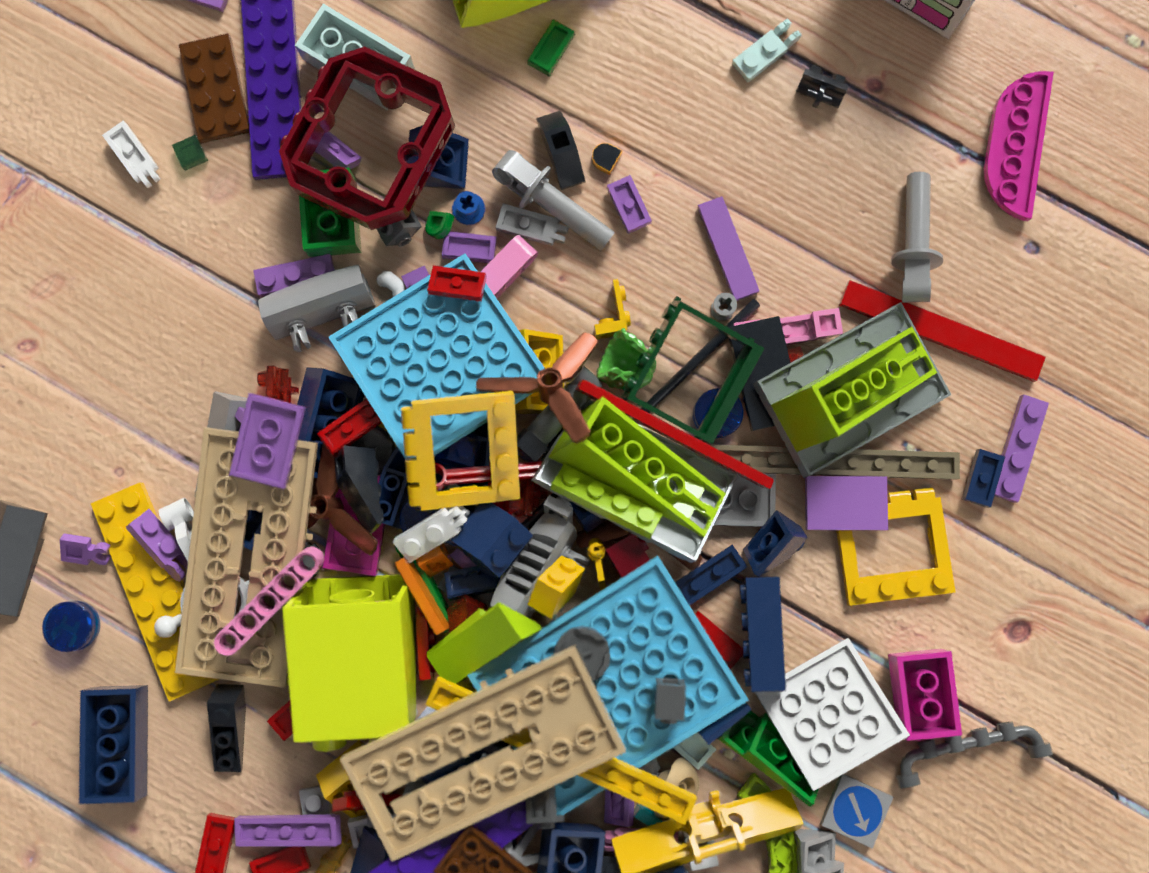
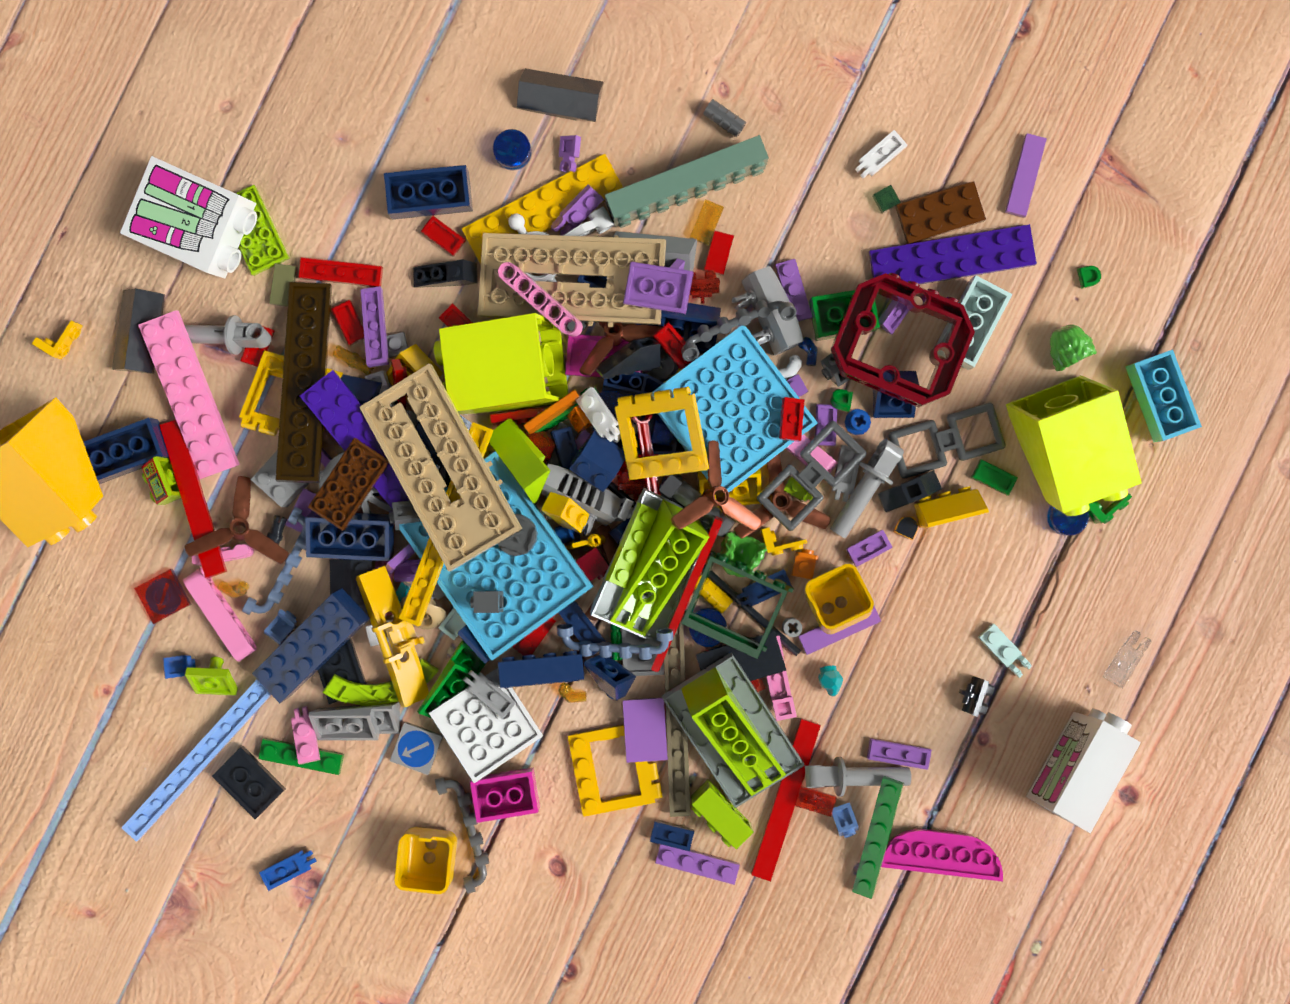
camera: 90 degrees right, 5 degrees up
(62, 346) = (724, 118): none -> dark grey axle
(137, 398) = (687, 181): none -> sand green brick
(176, 727) = (443, 235): none -> red tile
(195, 378) = (706, 222): none -> clear yellow tile
(235, 365) = (719, 252): none -> red tile
(358, 406) = (785, 309): none -> dark grey bar
(371, 258) = (811, 349): none -> clear blue arm
(499, 96) = (949, 439): none -> dark grey bar
(532, 266) = (811, 475): none -> dark grey bar
(547, 284) = (796, 490): none -> lime bracket
(571, 295) = (792, 508): none -> copper piece
(585, 100) = (950, 507): none -> yellow slope
(586, 587) = (567, 535): none -> blue piece
(603, 817) = (399, 559): none -> medium lavender tile
(643, 286) = (804, 564): none -> orange bracket
(674, 229) = (839, 582): none -> yellow piece
(676, 346) = (758, 592): none -> dark blue hinge
(678, 400) = (714, 595): none -> yellow axle
(726, 532) = (616, 638): none -> green axle
(739, 546) = (625, 650): none -> sand blue bar
(791, 705) = (489, 694): none -> light grey hinge
(793, 263) = (830, 679): none -> teal rock
(796, 598) = (570, 695): none -> clear yellow arm
(889, 187) = (899, 753): none -> medium lavender tile
(946, 292) = (815, 801): none -> clear red hips
(961, 411) = (721, 815): none -> lime brick
(970, 258) = (845, 820): none -> medium blue bracket
(995, 217) = (877, 837): none -> green plate
(1025, 823) = (414, 872): none -> yellow piece

